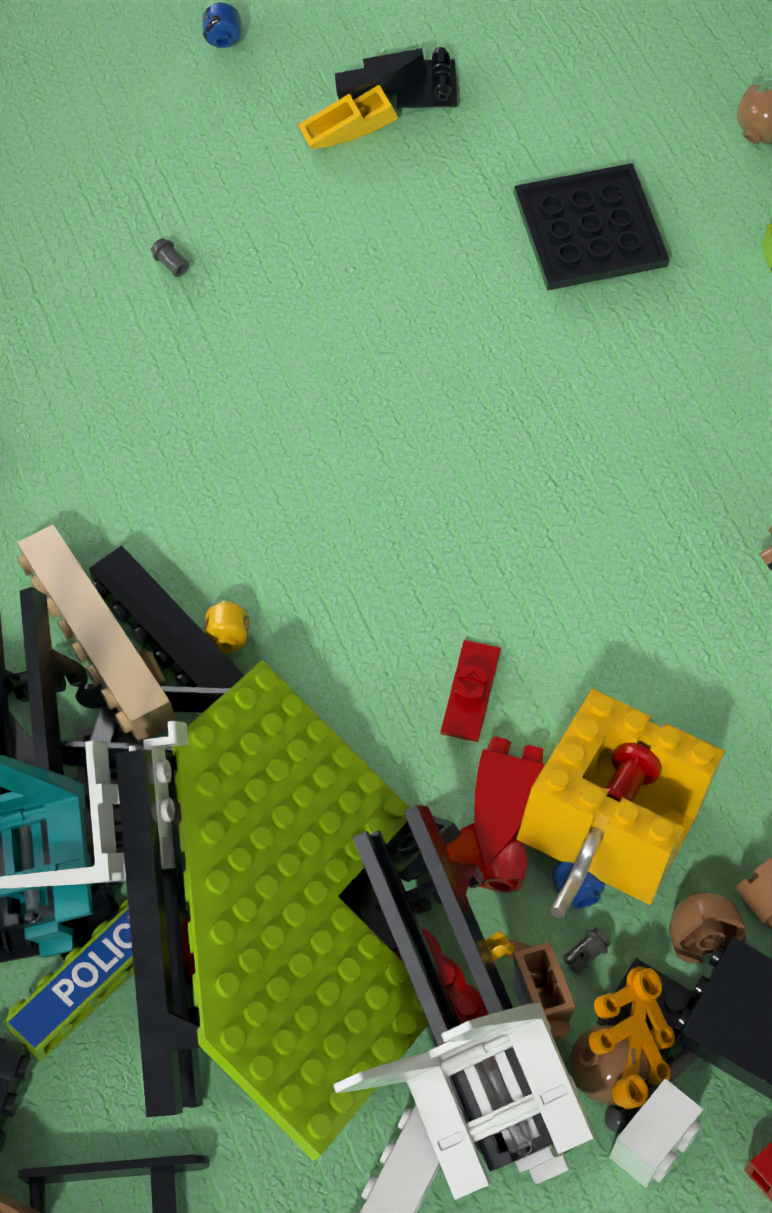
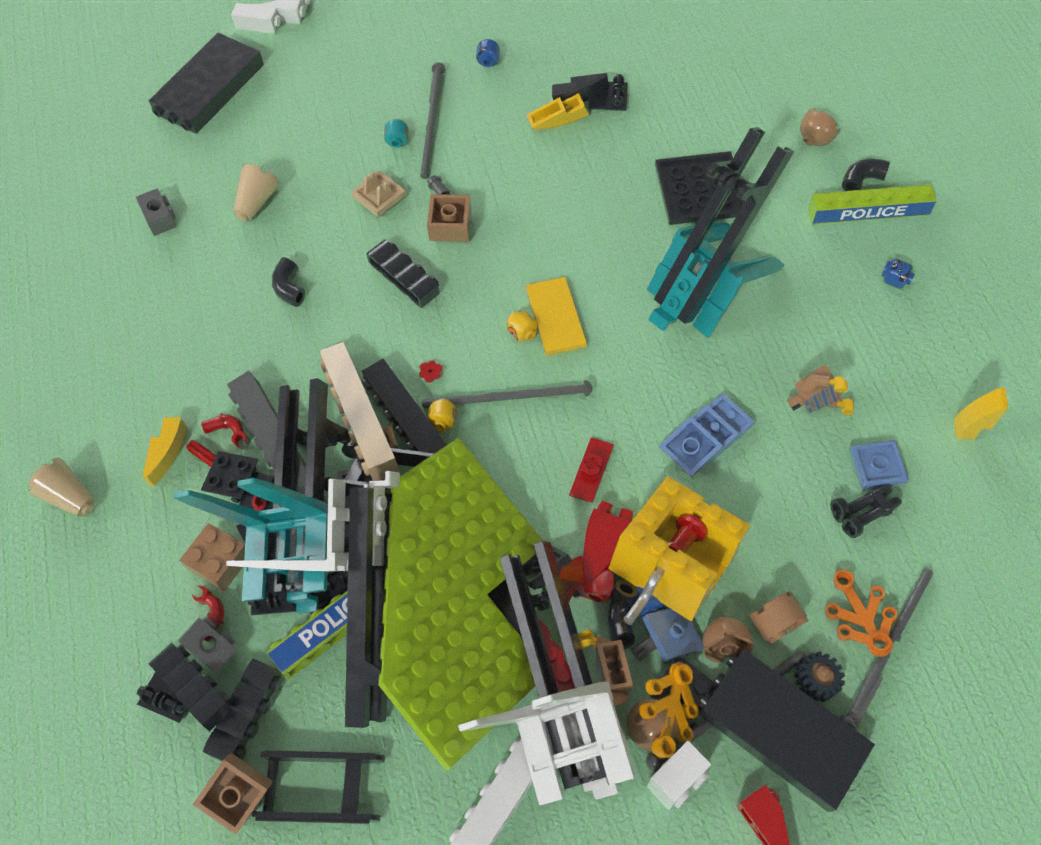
camera: 10 degrees right, 0 degrees up
(73, 275) = (378, 193): none -> tan plate
(88, 172) = (396, 132): none -> teal head
(132, 404) = (403, 273): none -> black brick
(142, 58) = (438, 69): none -> dark grey bar
(196, 307) = (449, 218): none -> medium nougat brick
(197, 551) = (426, 368): none -> red plant
(334, 474) = (521, 326): none -> yellow head
(385, 453) = (556, 316): none -> yellow tile
(447, 563) = (585, 388): none -> dark grey bar
(536, 899) = (617, 608): none -> black cylinder
(569, 386) = (677, 284): none -> piece
(624, 928) = (672, 634): none -> medium blue plate
(642, 619) = (706, 435): none -> medium blue slope

